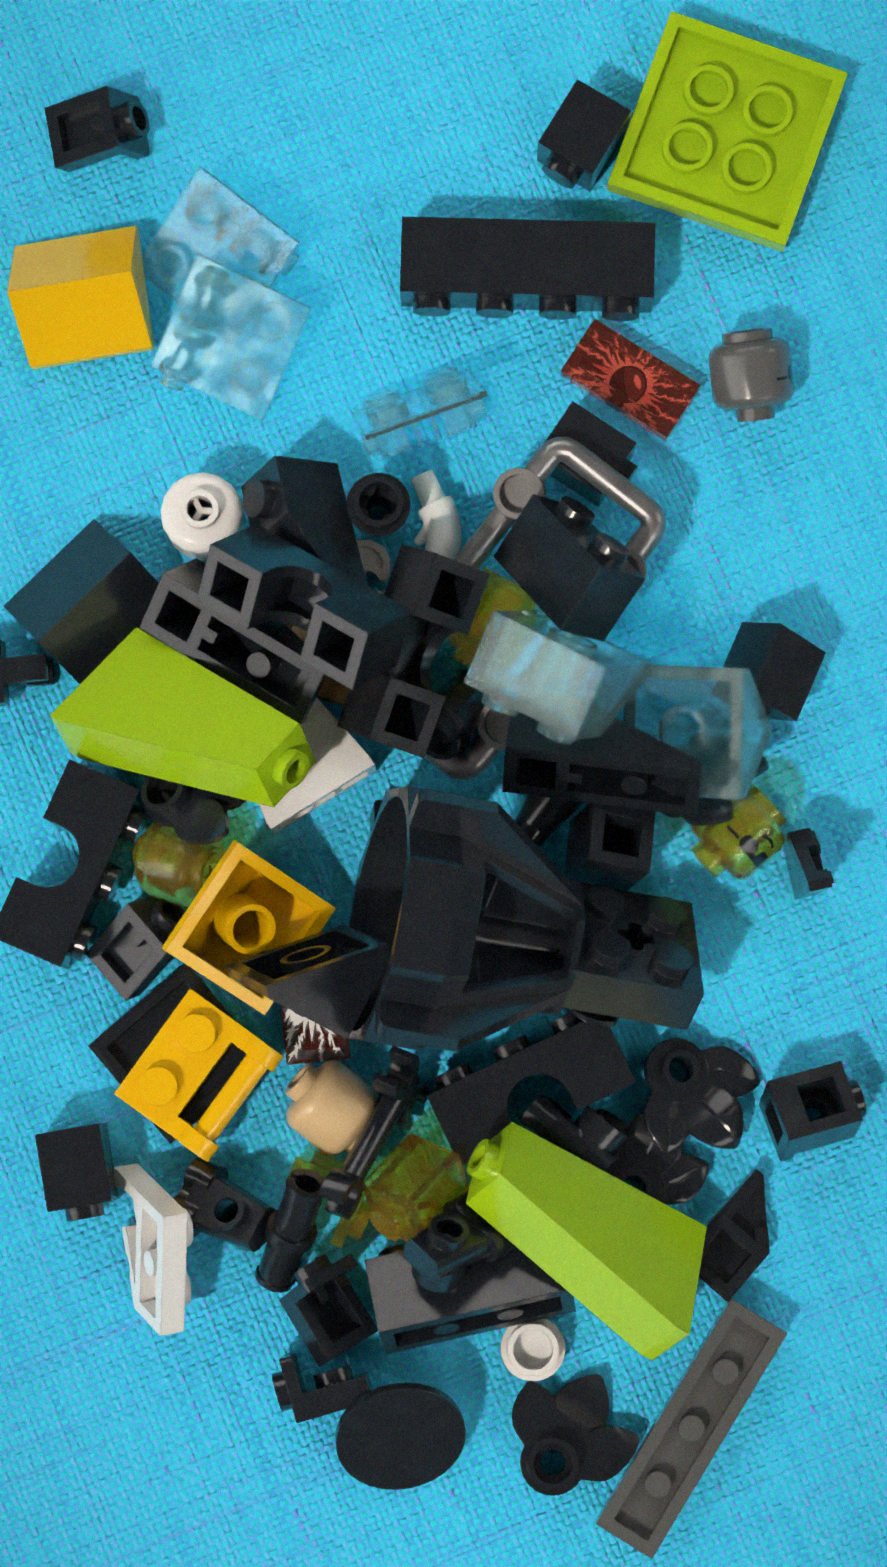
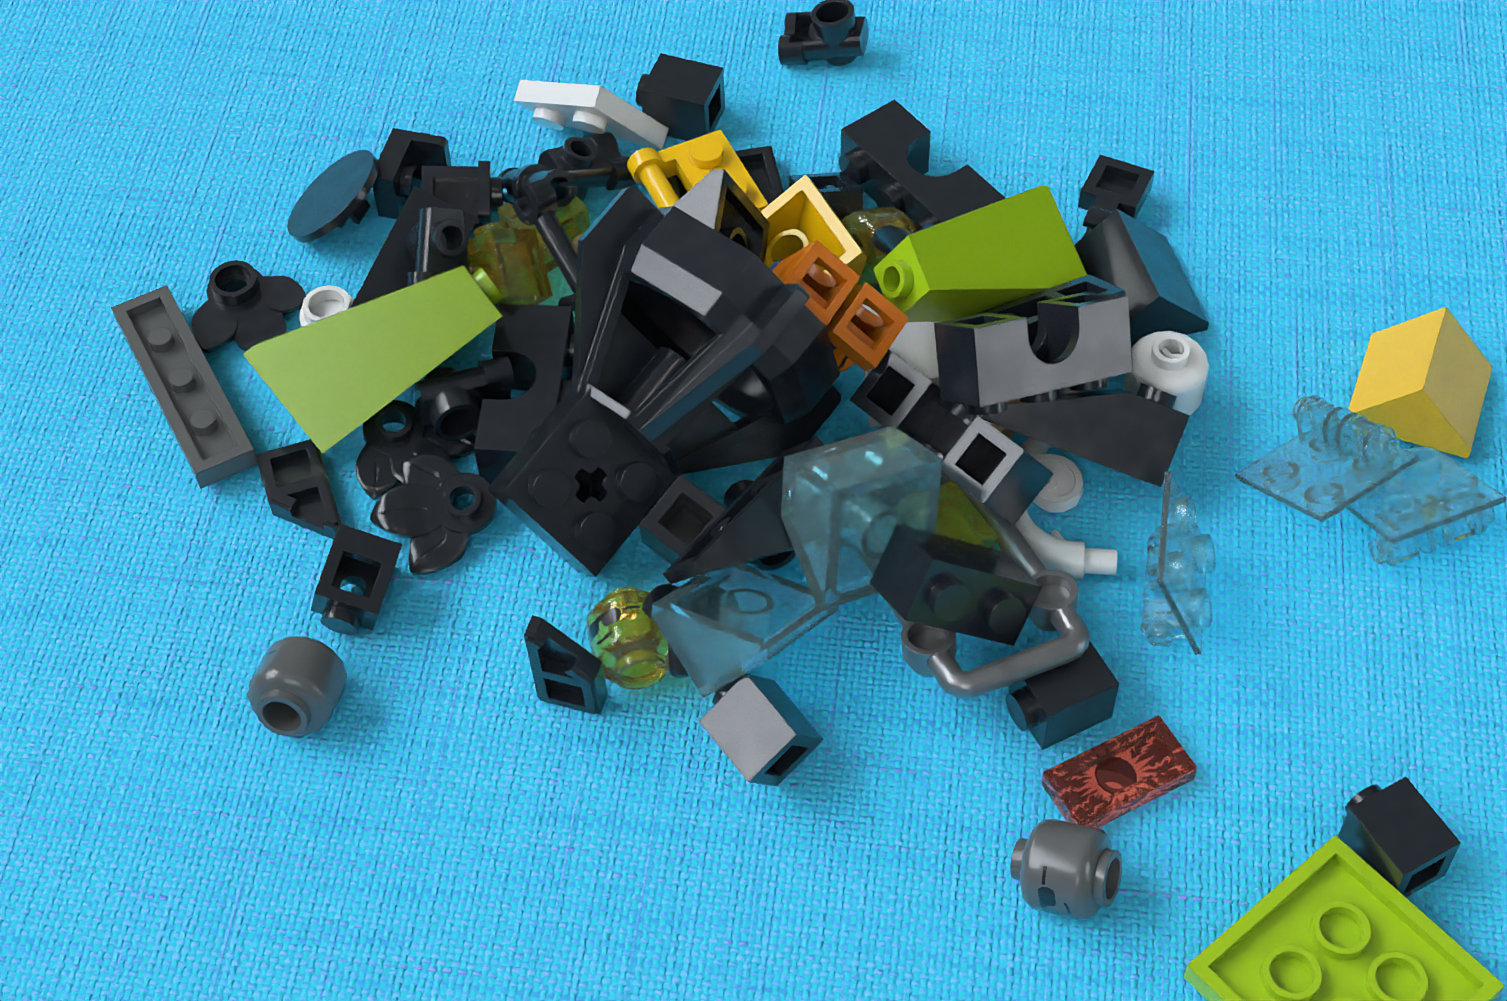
camera: 115 degrees right, 30 degrees down
(351, 822) = (852, 329): none -> orange hips
(373, 491) = (1100, 494): black cone -> none
(527, 267) = (1277, 732): black brick -> none

